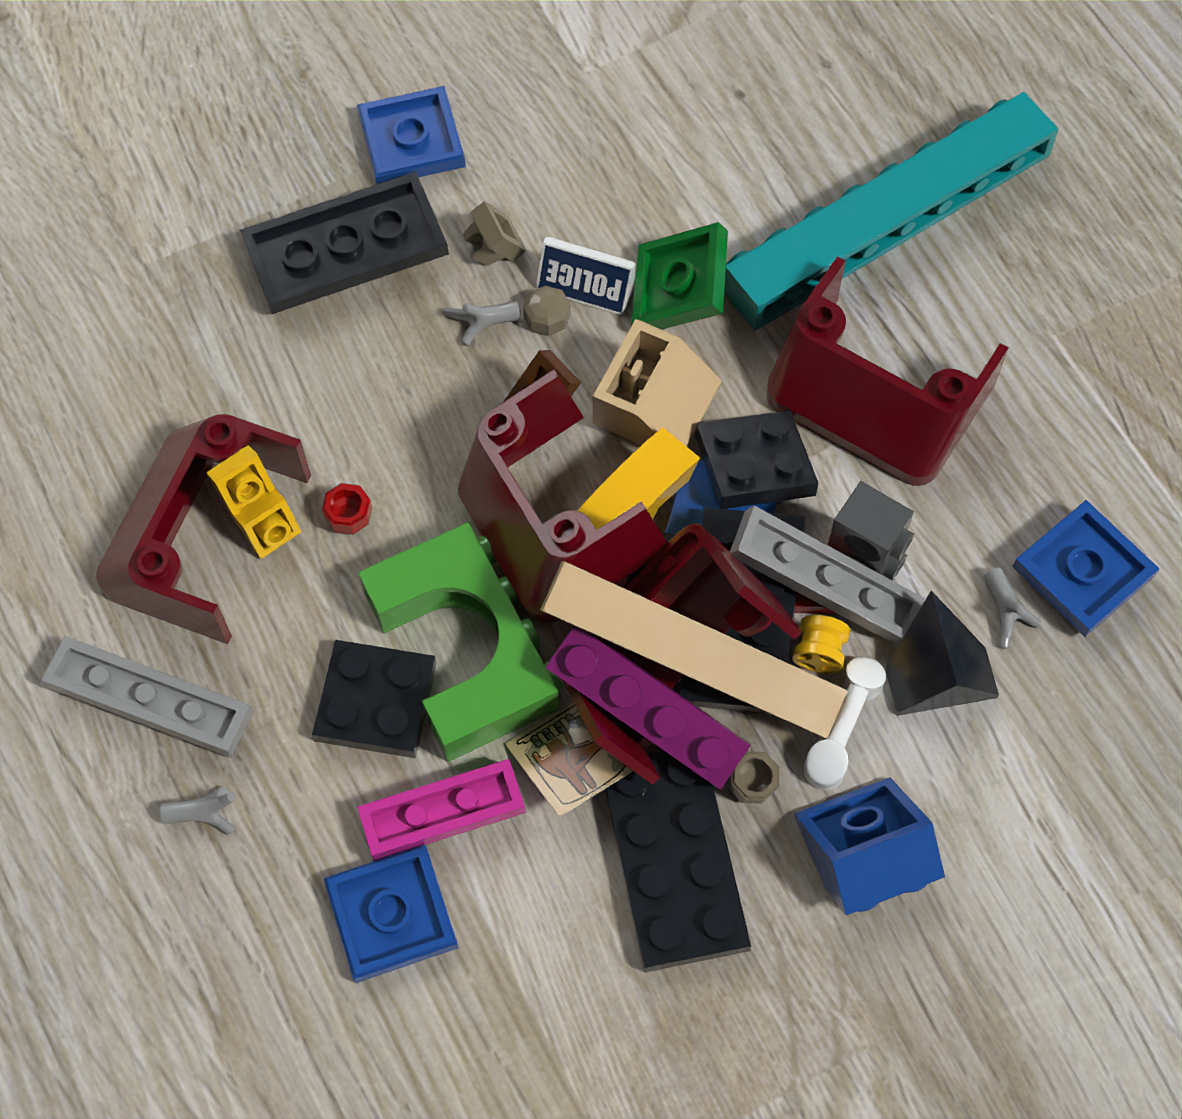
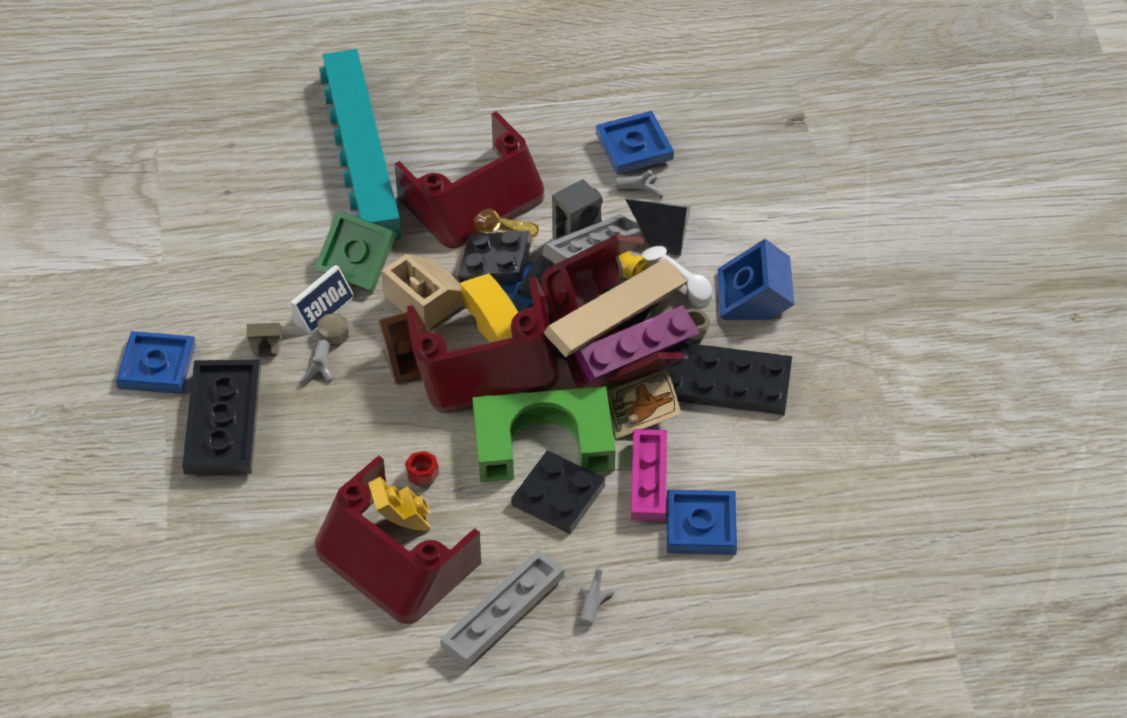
camera: 70 degrees left, 15 degrees down
(816, 424) = (490, 221): none -> clear yellow piece

